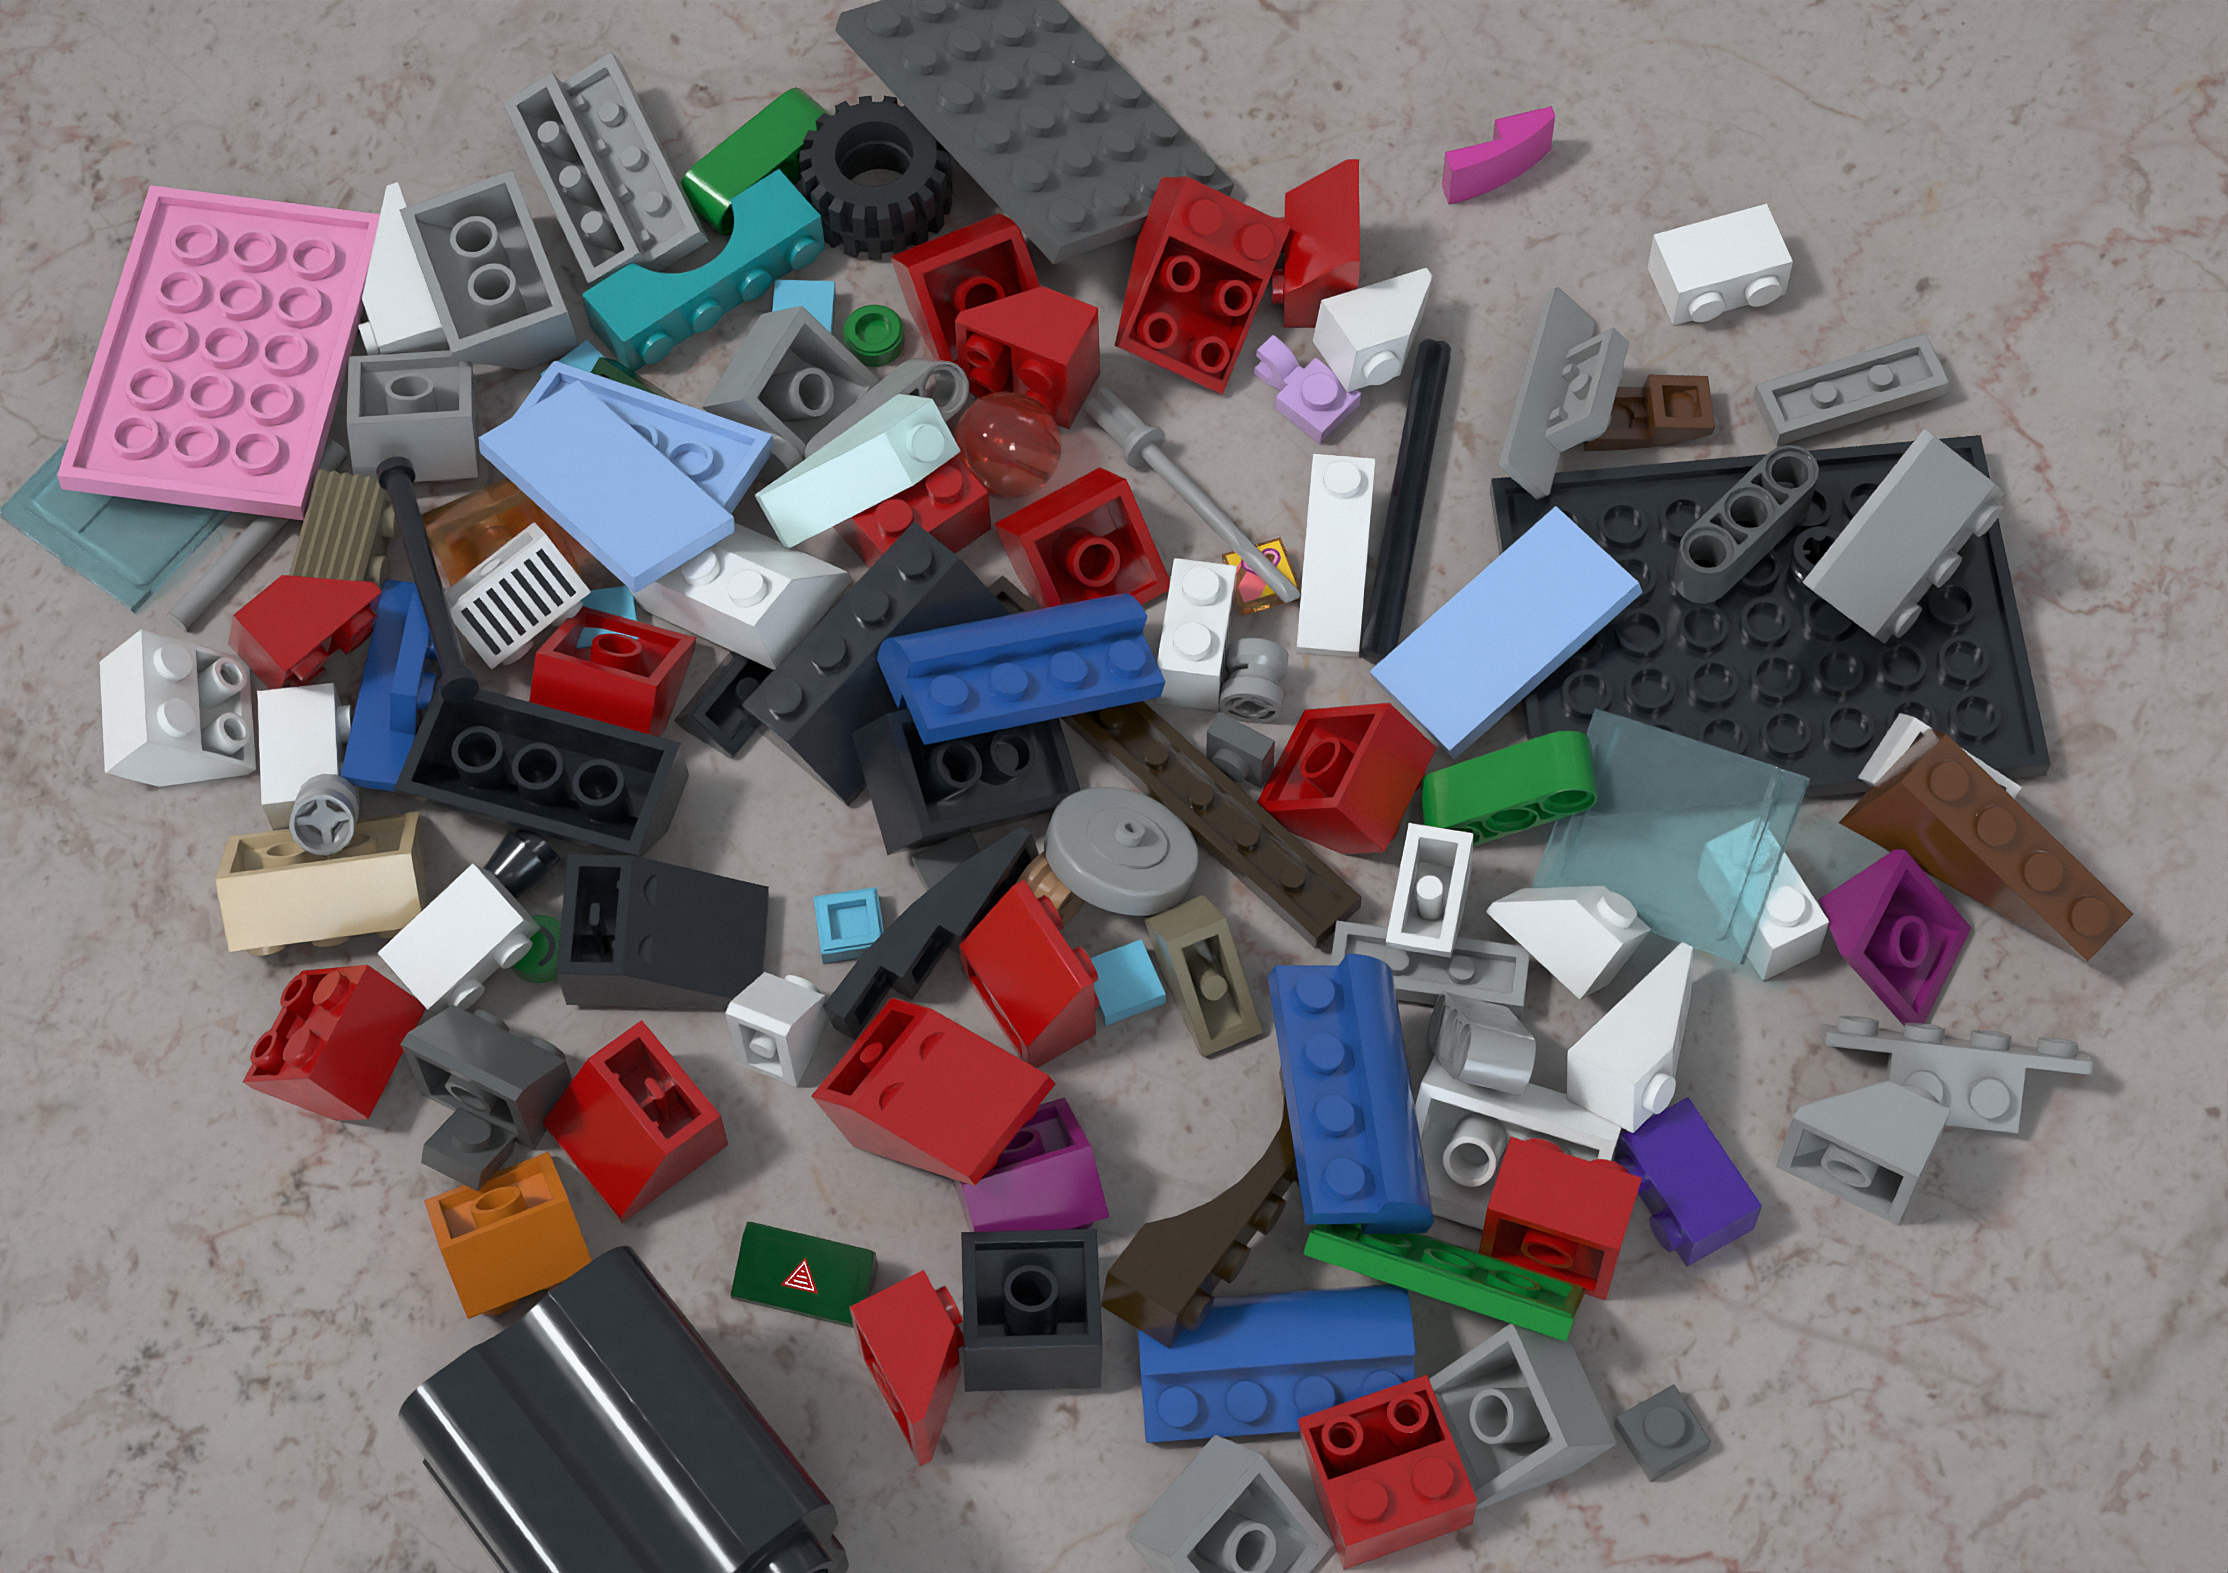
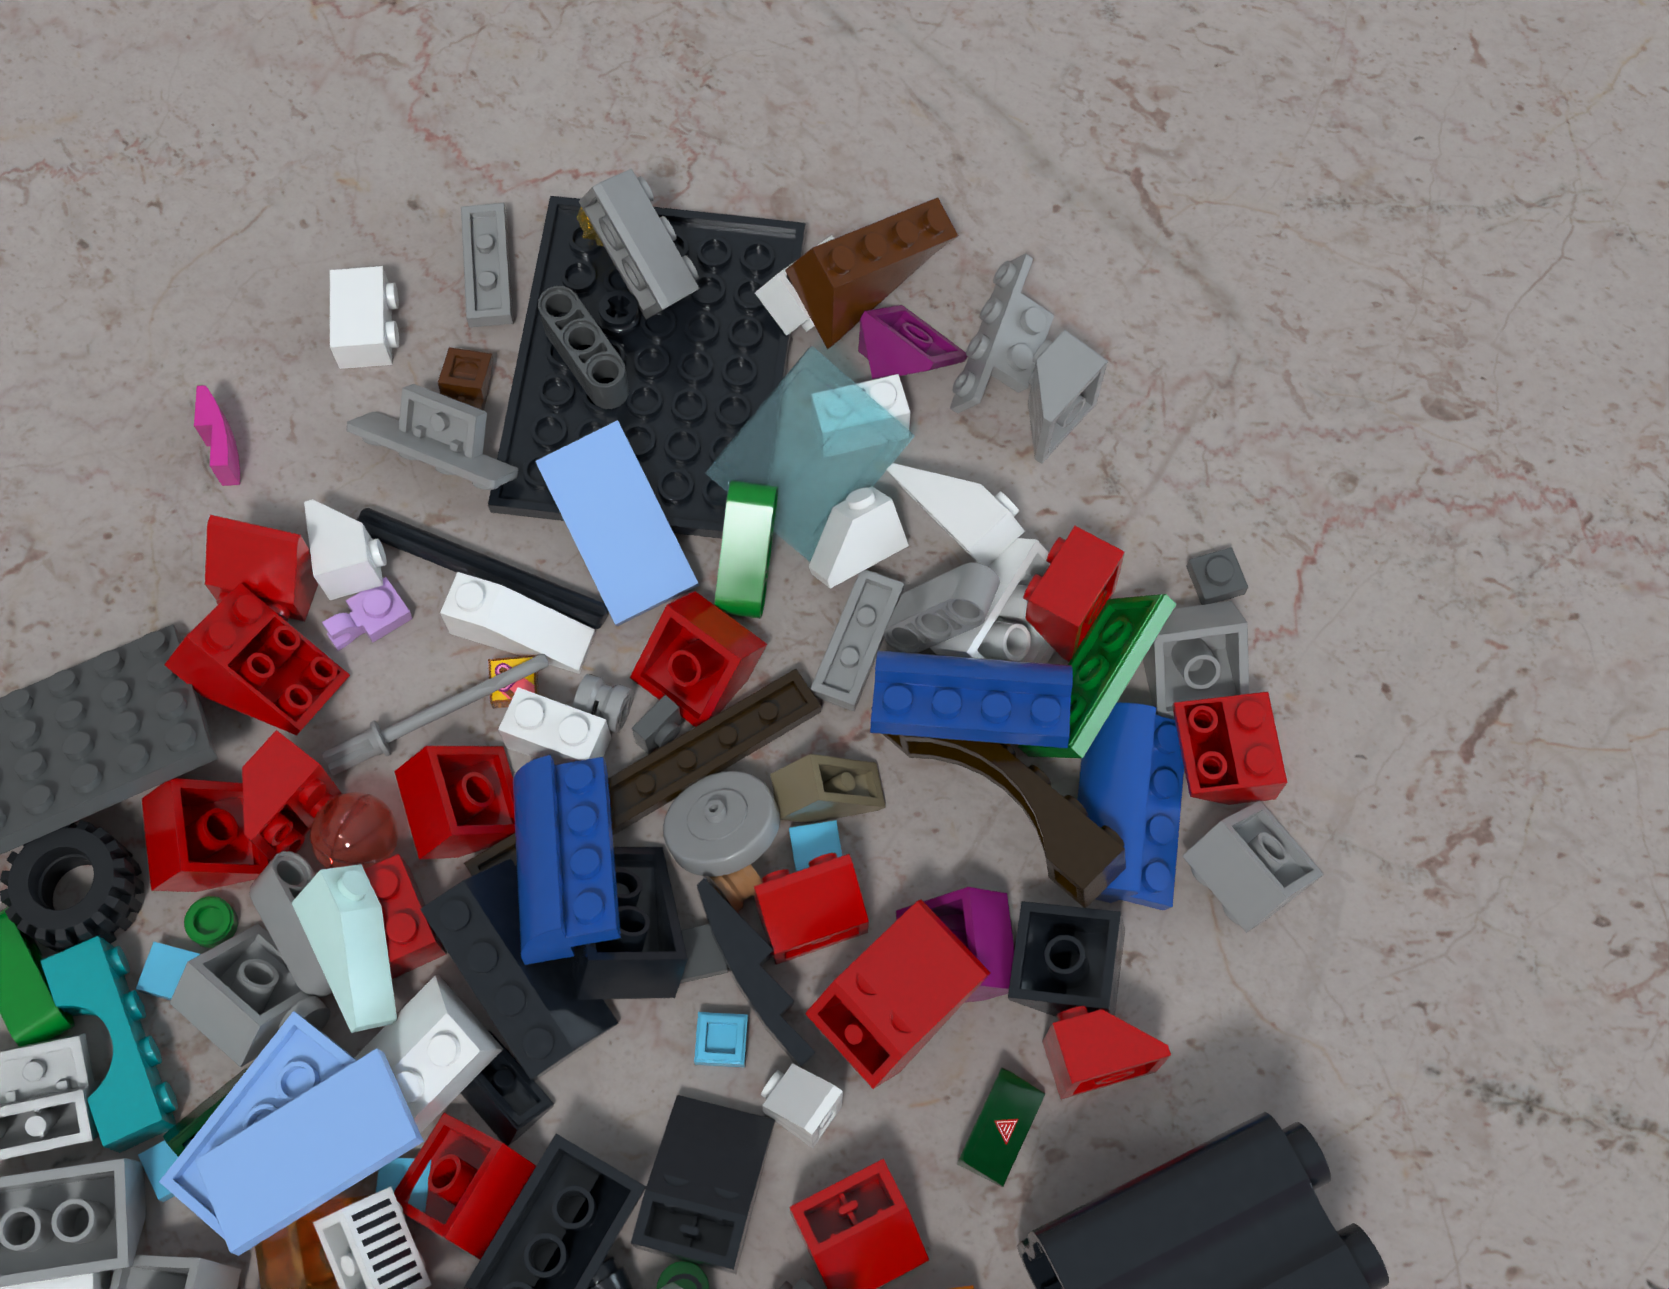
camera: 80 degrees left, 5 degrees up
(1431, 890) = (812, 619): white slope -> none
(1688, 1183) = (1058, 505): dark purple brick -> none

